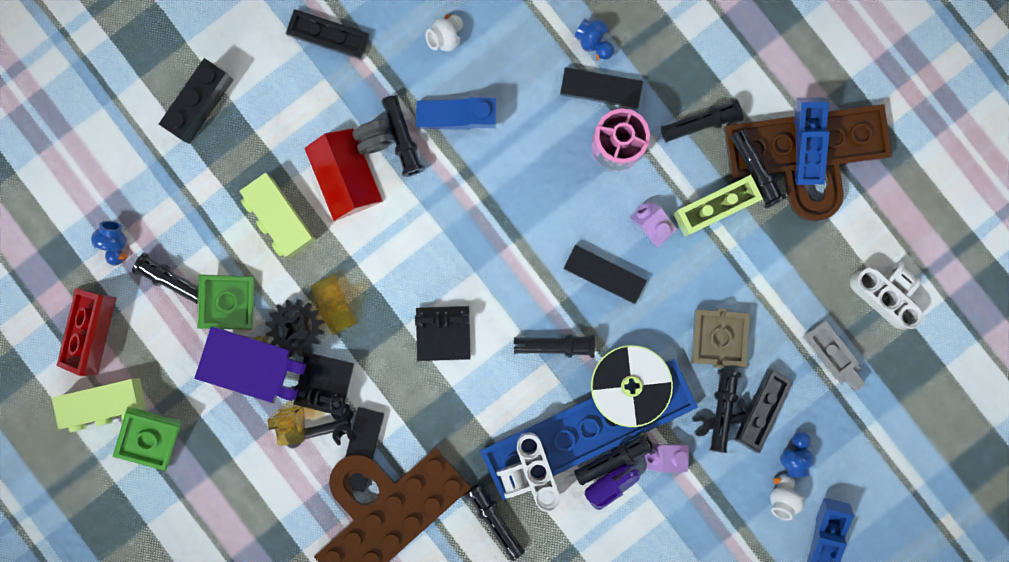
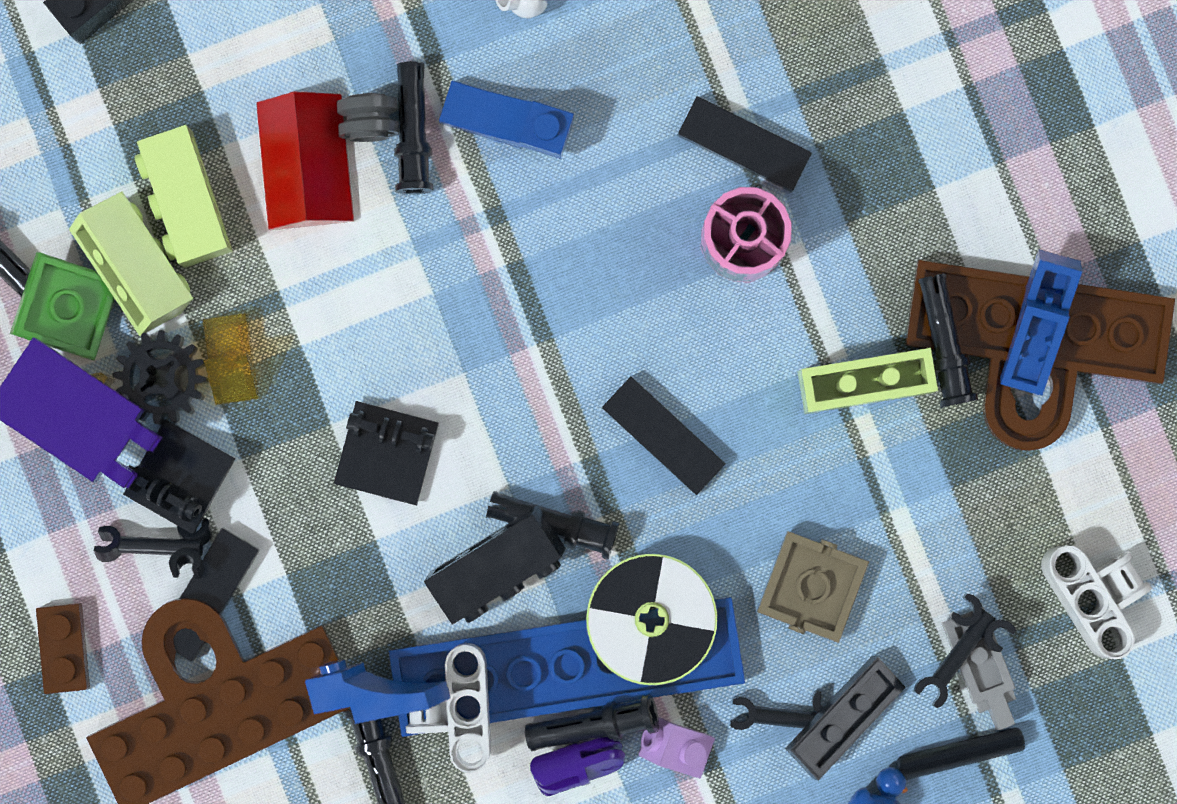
camera: 20 degrees right, 0 degrees up
(257, 264) = (131, 263): none -> yellowish green brick
(284, 507) = (62, 648): none -> reddish brown plate
(288, 425) = (106, 524): clear yellow slope -> none
(477, 482) = (369, 694): none -> blue slope
(529, 382) = (496, 566): none -> black brick
(590, 35) = (750, 59): blue animal -> none
(653, 222) = (762, 378): lavender bracket -> none
(713, 117) = (905, 241): black pin -> none
(722, 395) = (793, 680): black pin -> none
(828, 332) = (981, 626): none -> black bar
(837, 411) = (961, 753): none -> black axle

